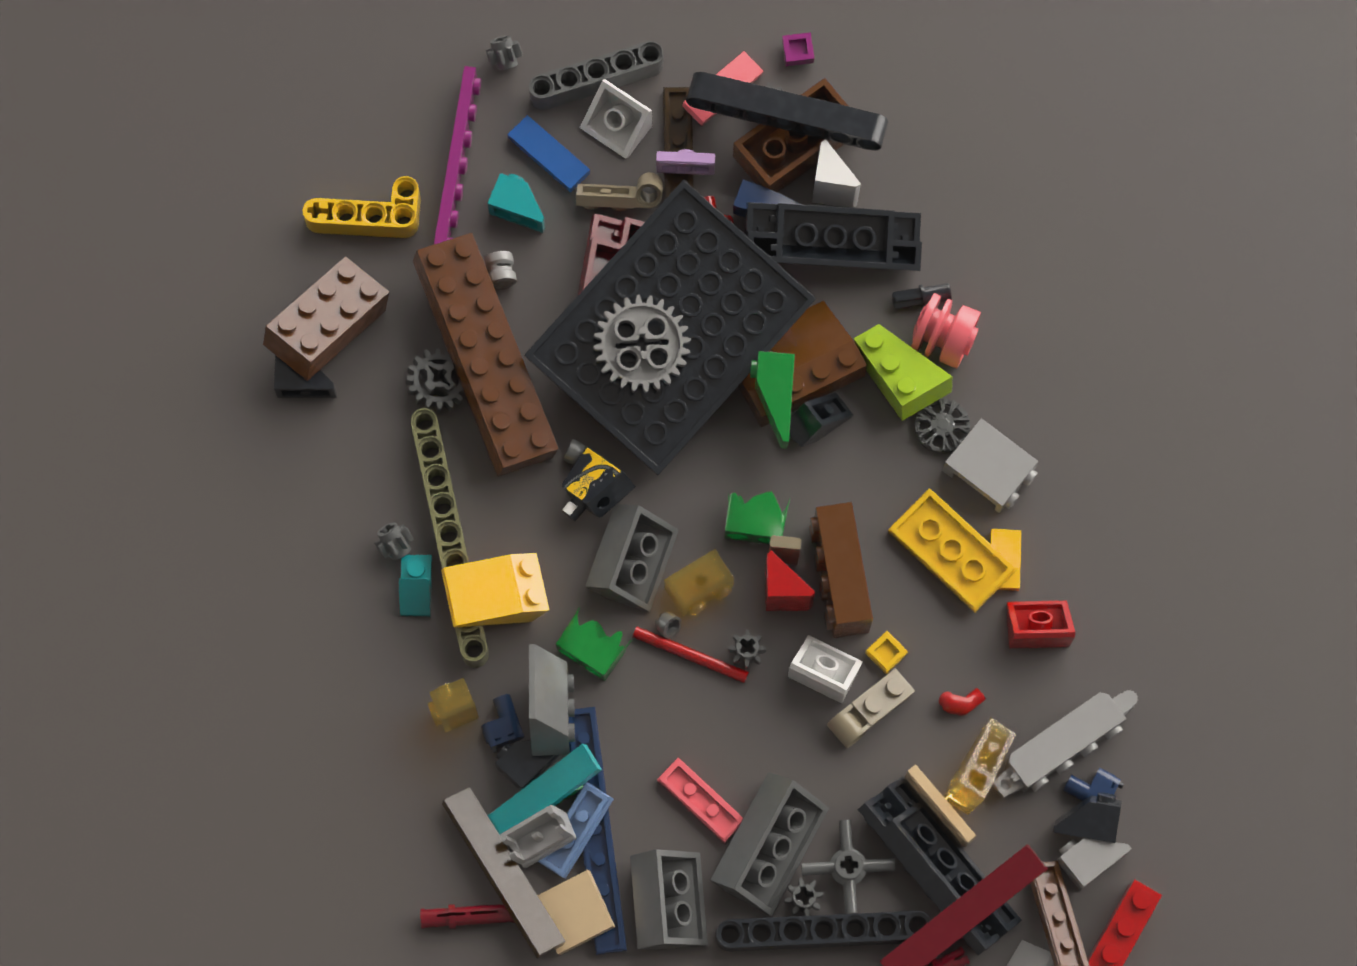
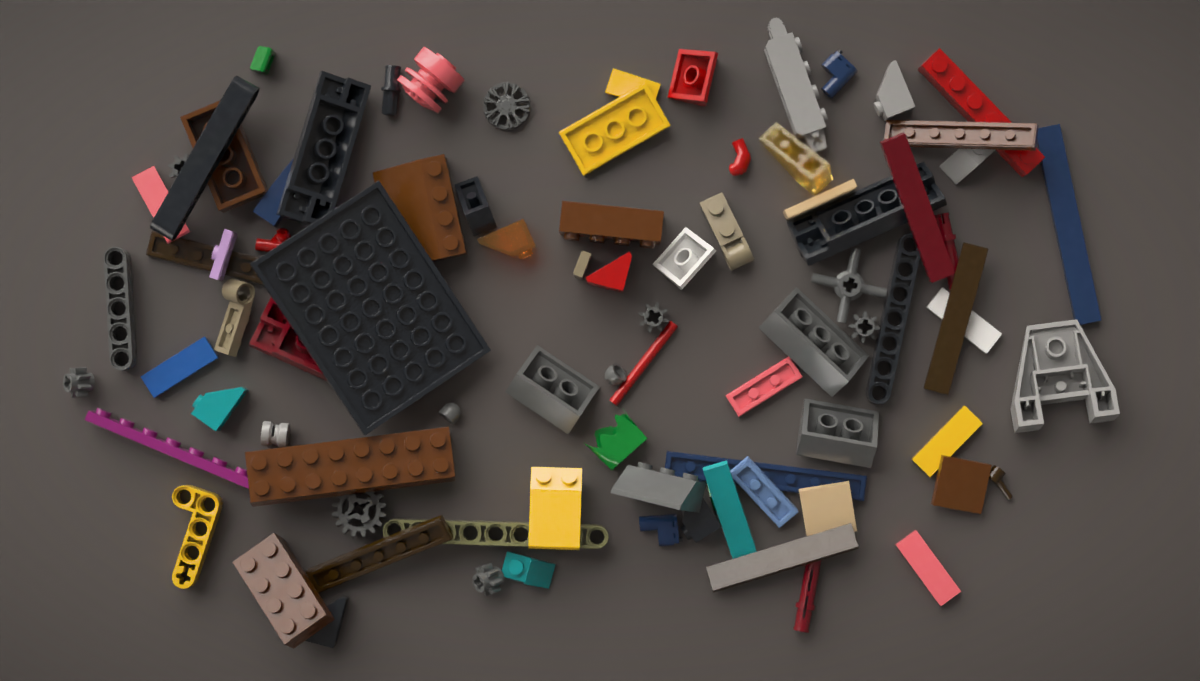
camera: 75 degrees left, 15 degrees up
(394, 412) = (379, 553): none -> dark brown tile
(452, 705) = (639, 565): clear yellow brick -> none
(539, 836) = (763, 522): light grey hinge -> none
(594, 486) = (486, 405): black torso -> none
(617, 119) = (166, 302): white slope -> none
(644, 371) = (406, 340): light grey gear -> none
(699, 583) = (588, 340): clear yellow brick -> none
(755, 519) = (548, 280): green piece -> none
(774, 387) = (445, 235): green slope -> none
(792, 470) = (510, 240): none -> clear orange slope
(798, 49) = (141, 130): magenta plate -> none
(834, 181) = (272, 135): white slope -> none
(886, 652) = (683, 205): yellow tile -> none
(901, 372) = (455, 128): lime wedge -> none
(913, 155) = (263, 60): none -> green slope
(992, 465) = (553, 76): light grey panel -> none
(1092, 818) = (863, 84): black slope -> none

